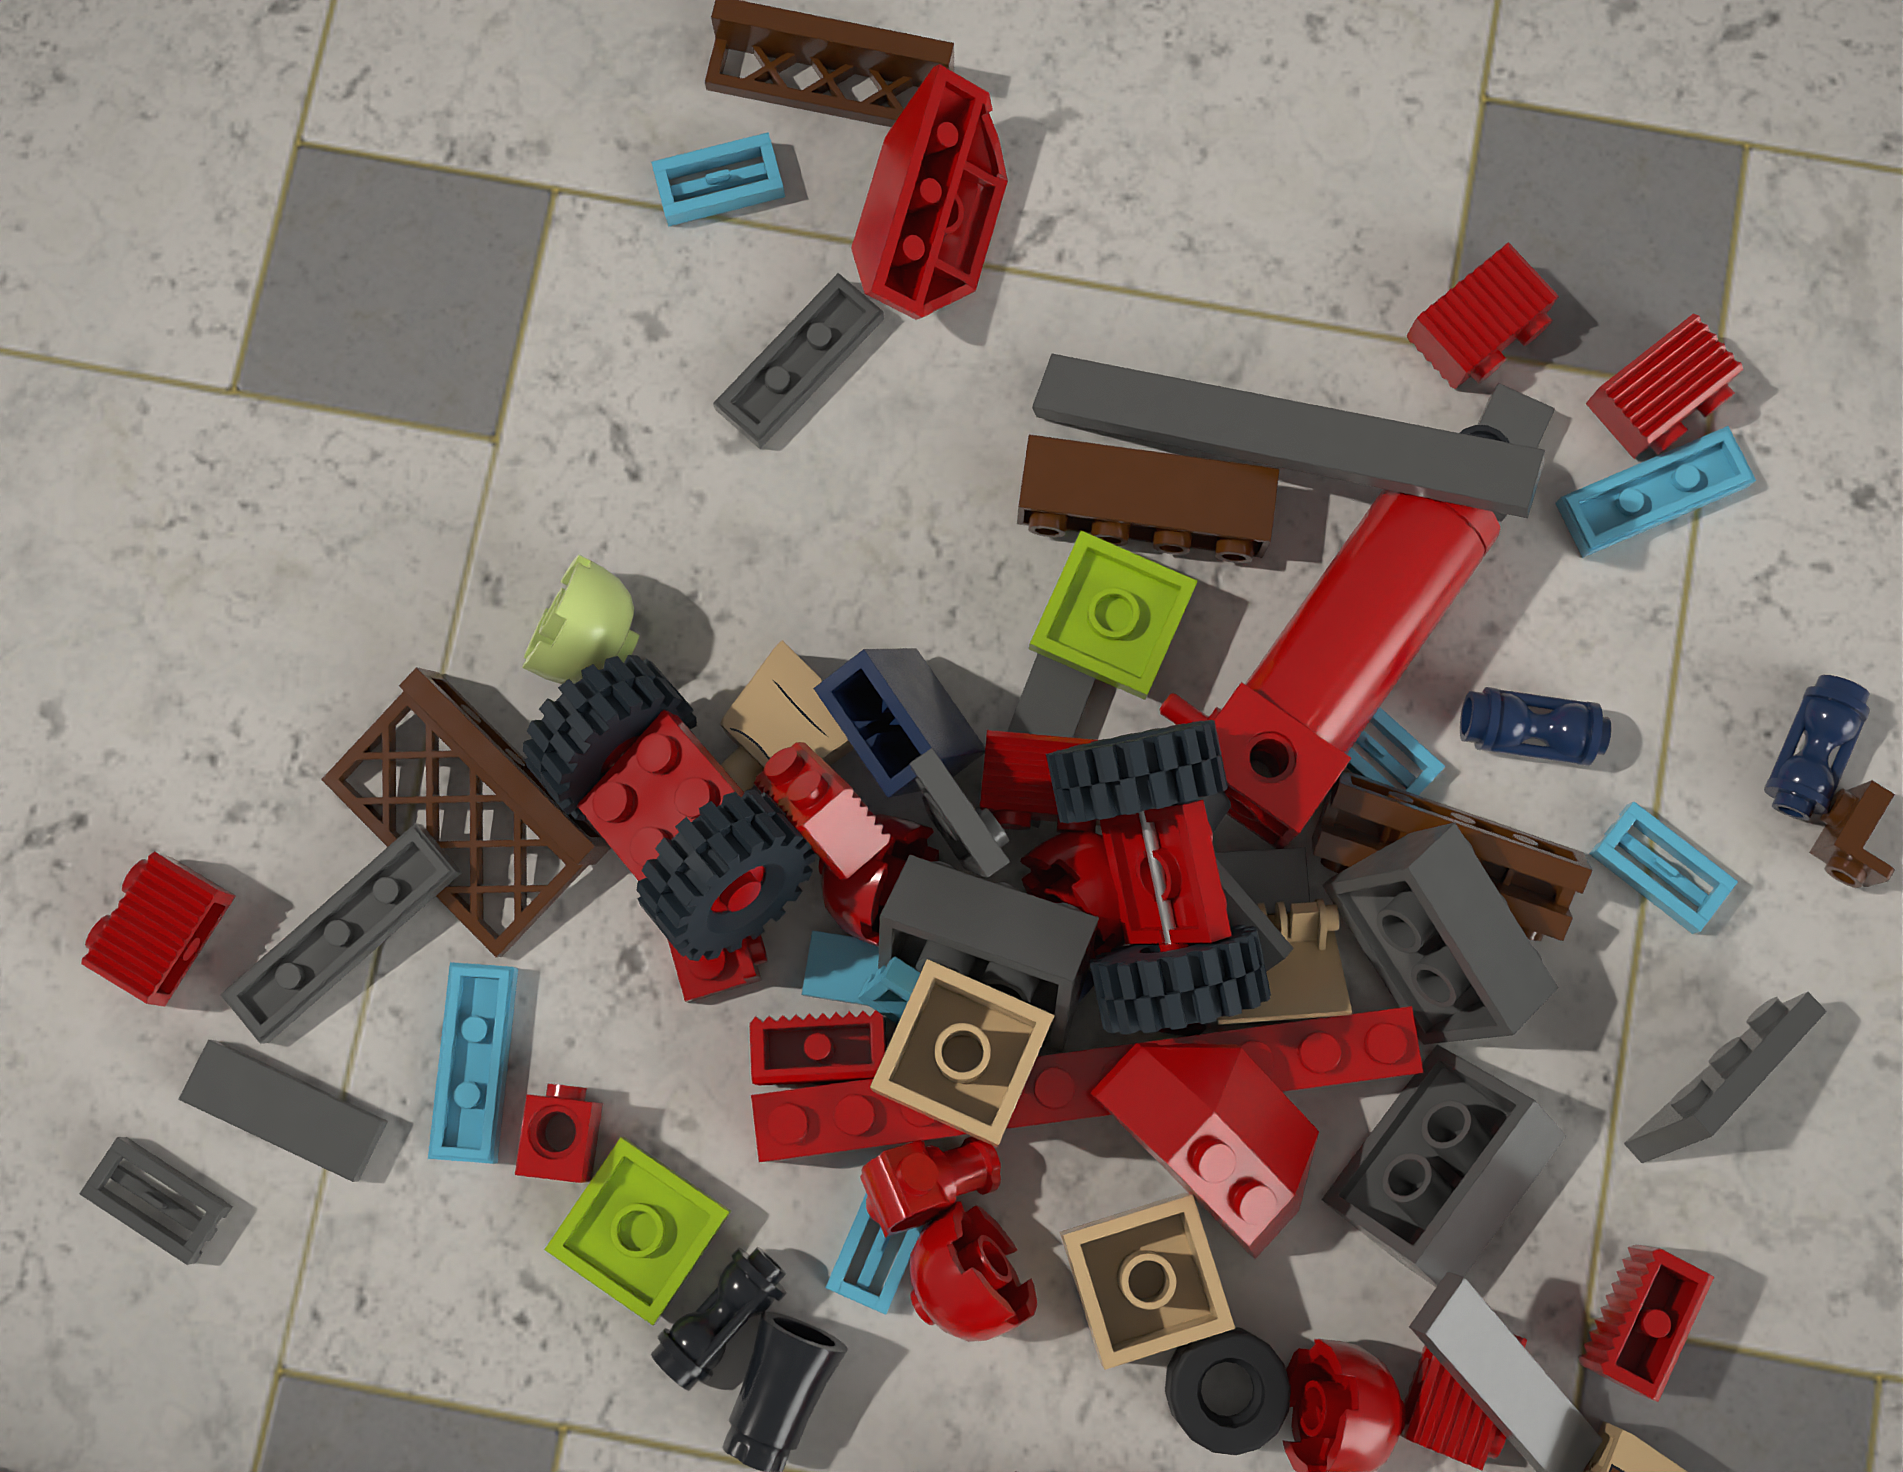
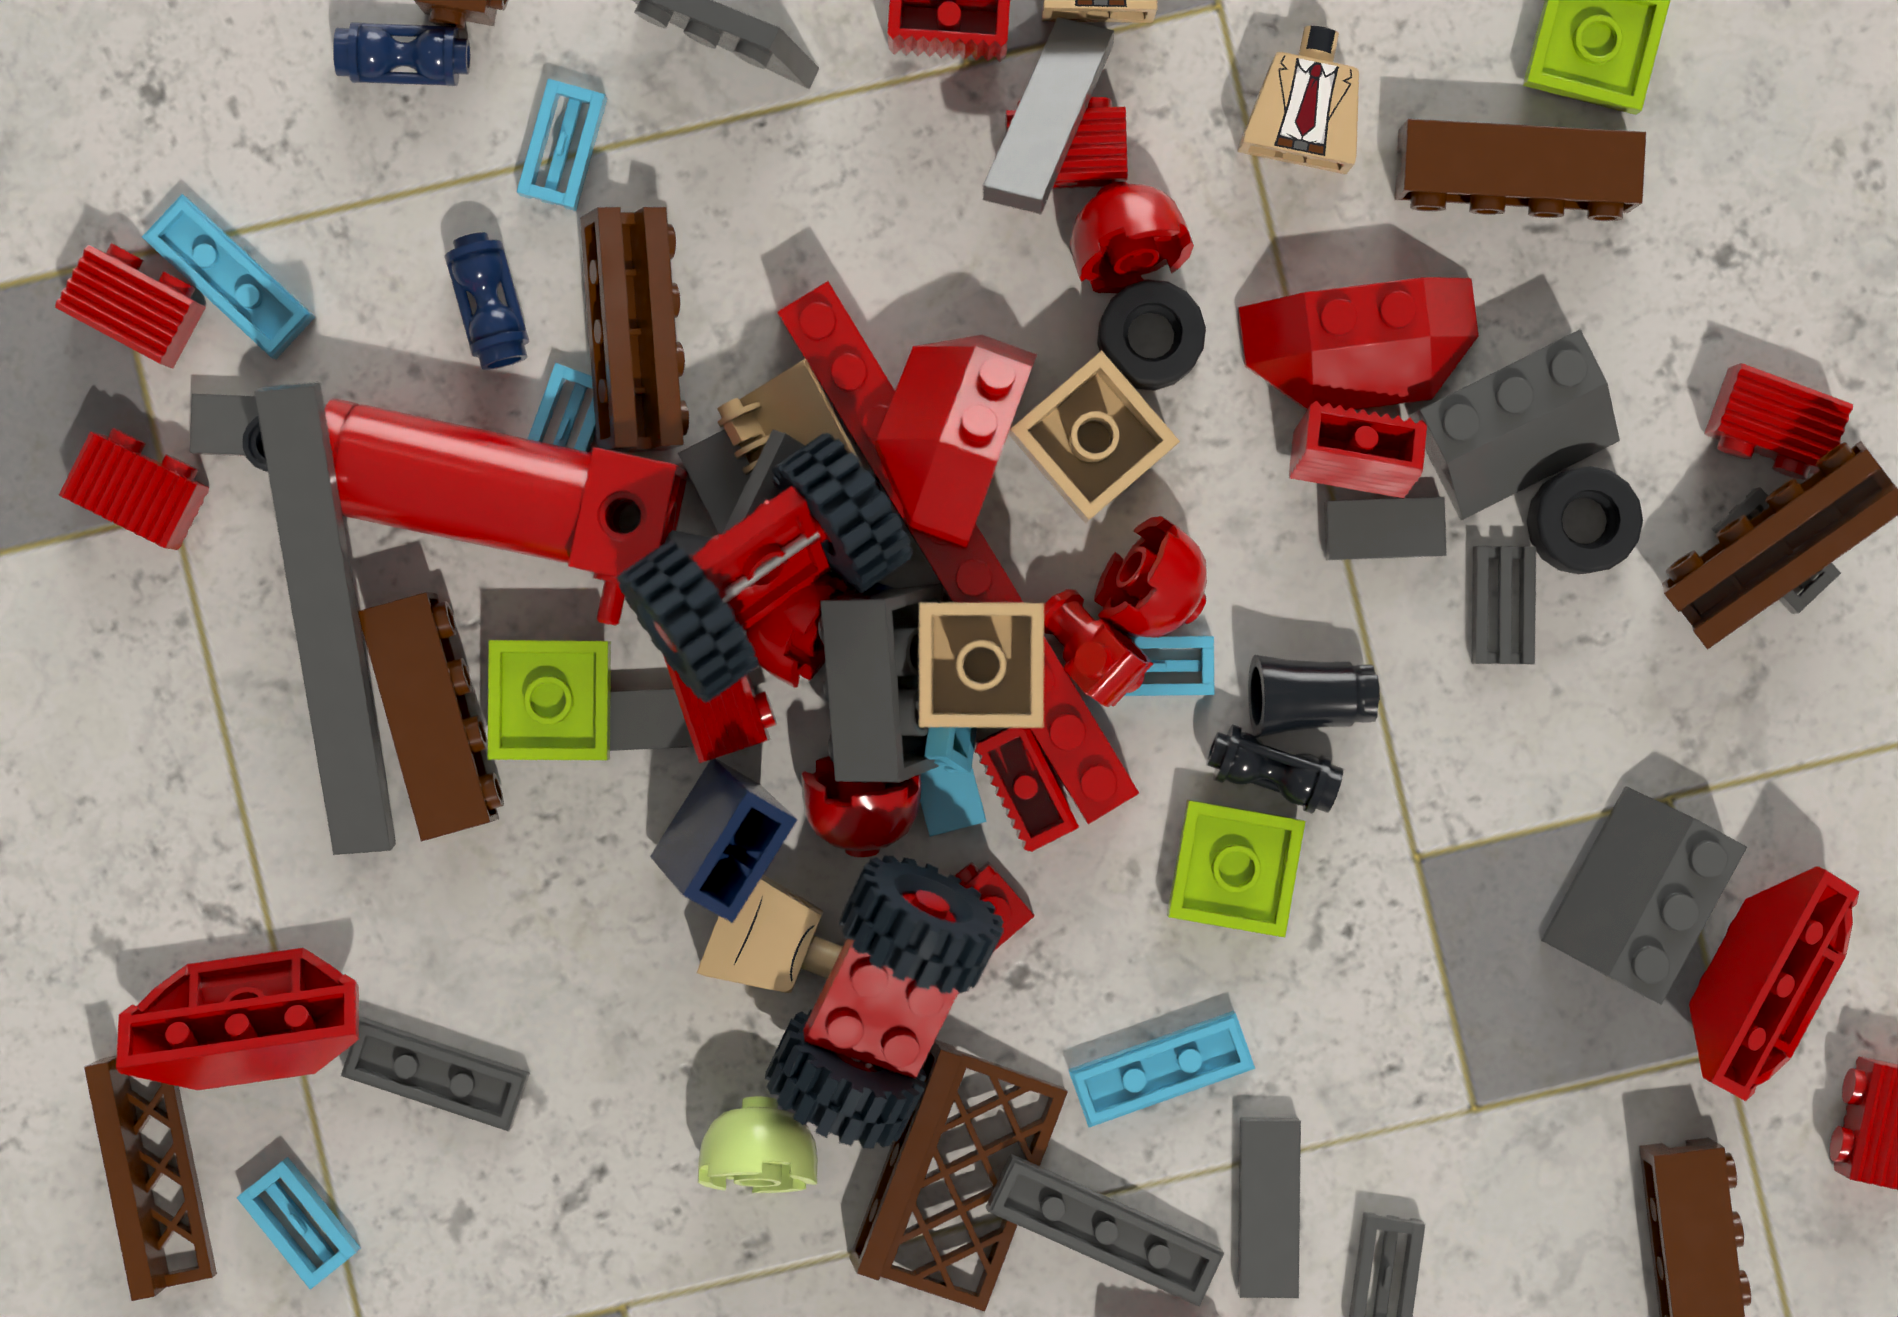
camera: 115 degrees left, 10 degrees up
(536, 1155) = (1215, 973): red brick -> none
(823, 809) = (829, 871): red brick -> none
(969, 832) = (790, 745): dark grey wing -> none
(1442, 937) = (707, 309): dark grey slope -> none
(1445, 1166) = (894, 230): dark grey slope -> none

